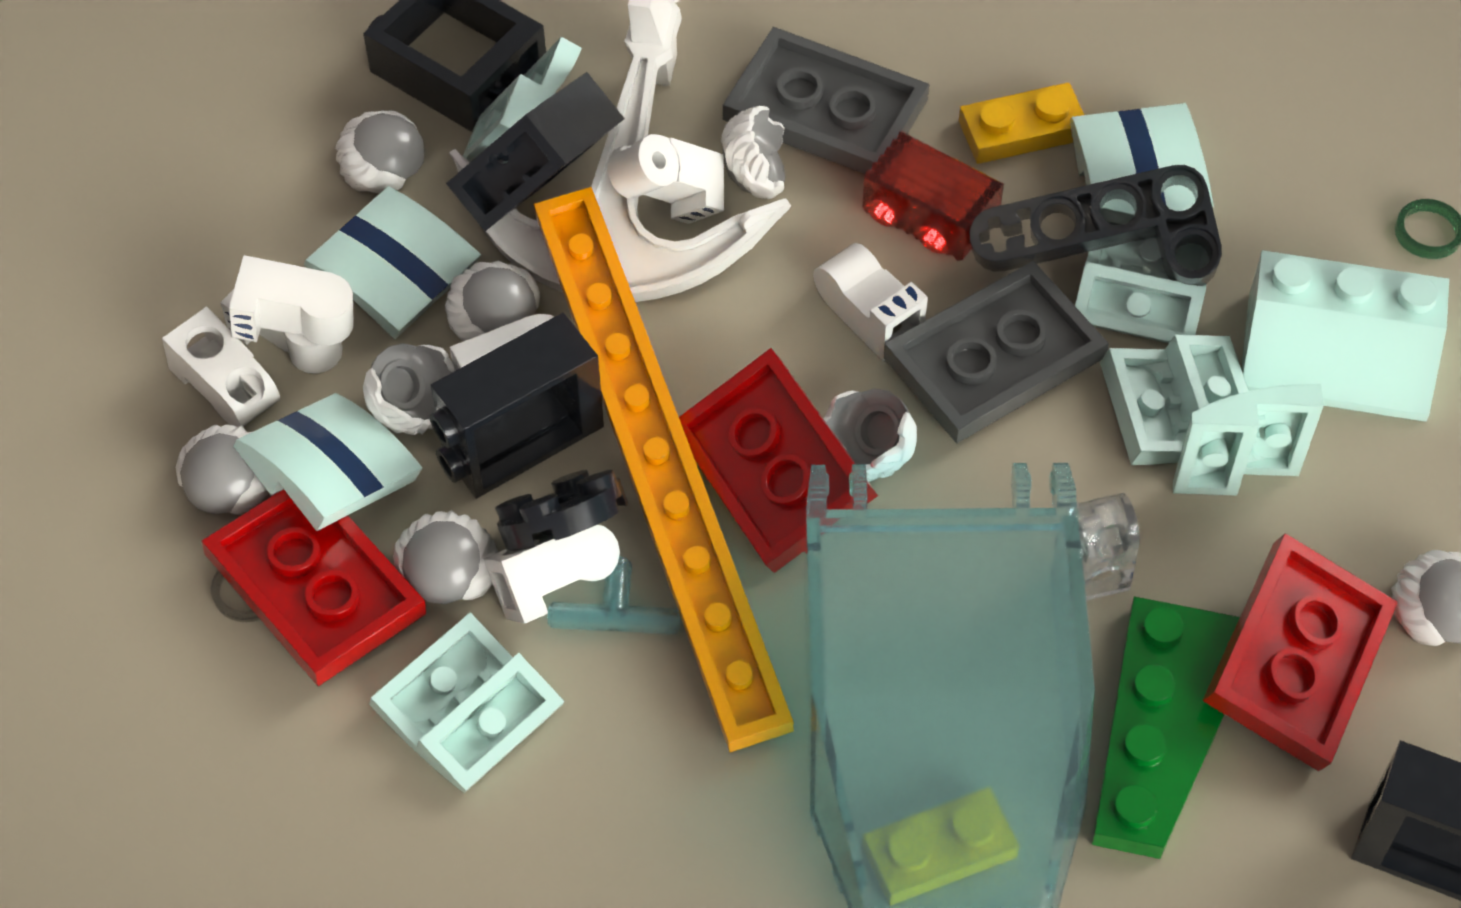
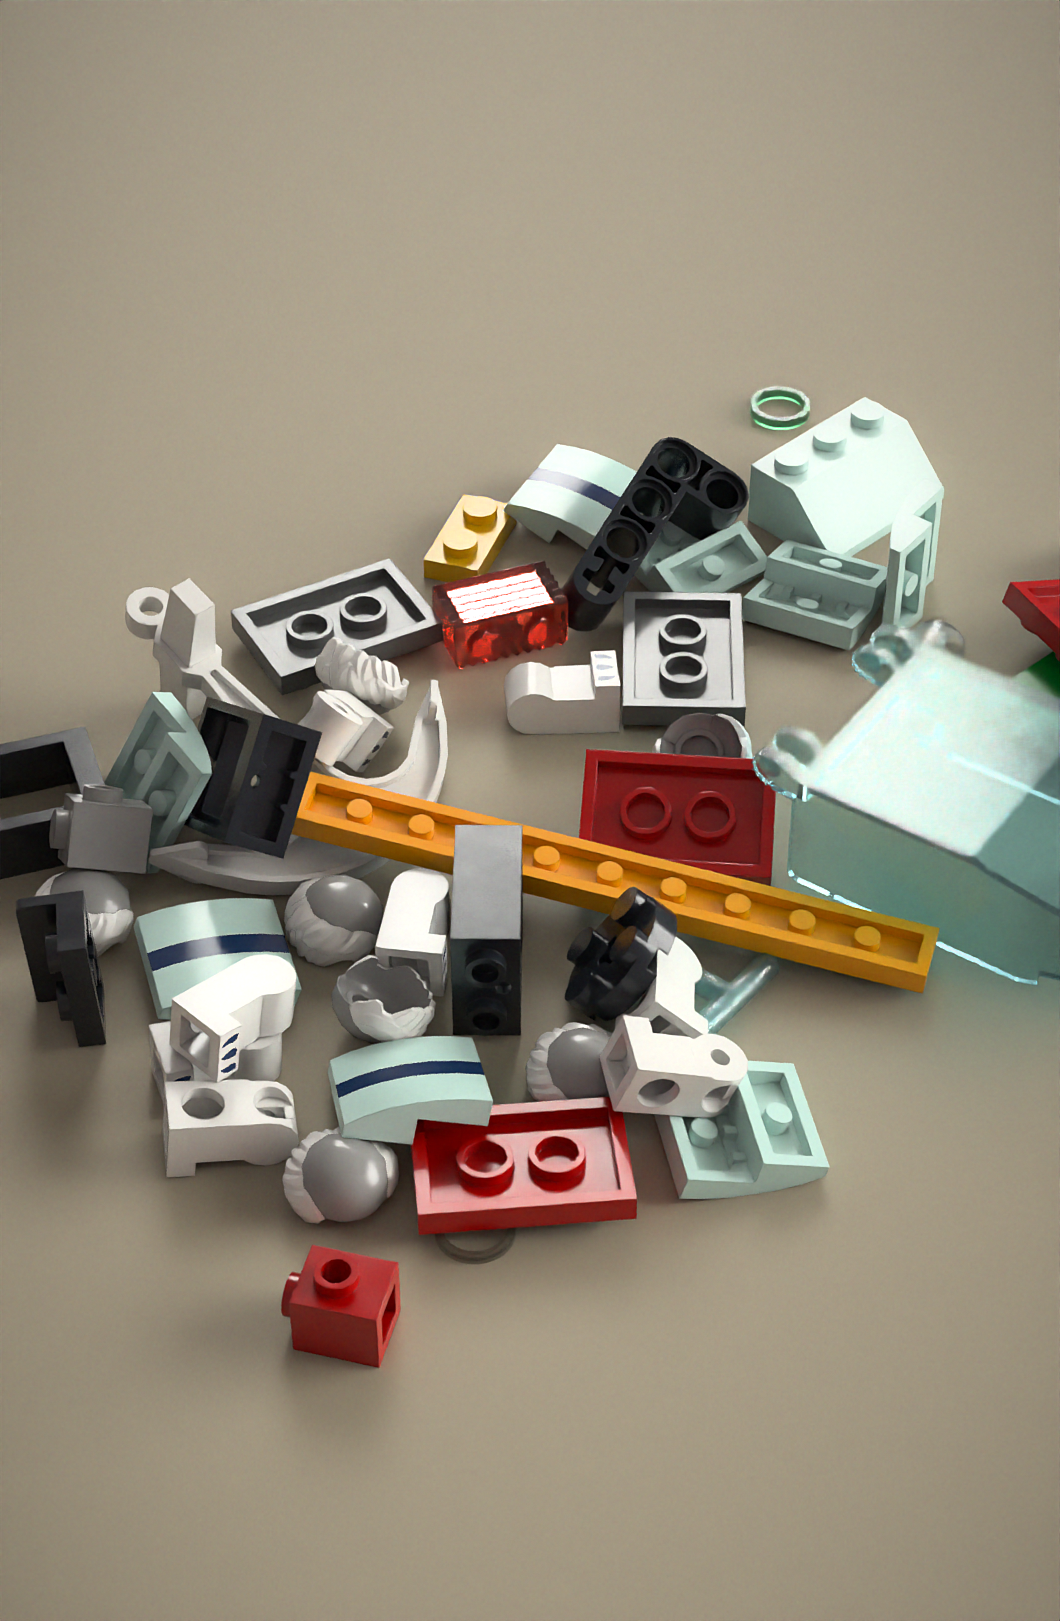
camera: 55 degrees left, 15 degrees down
(93, 549) = (343, 1305): none -> red brick
(285, 180) = (64, 960): none -> black bracket
(435, 108) = (102, 830): none -> light grey brick
(450, 622) = (670, 1072): none -> white leg

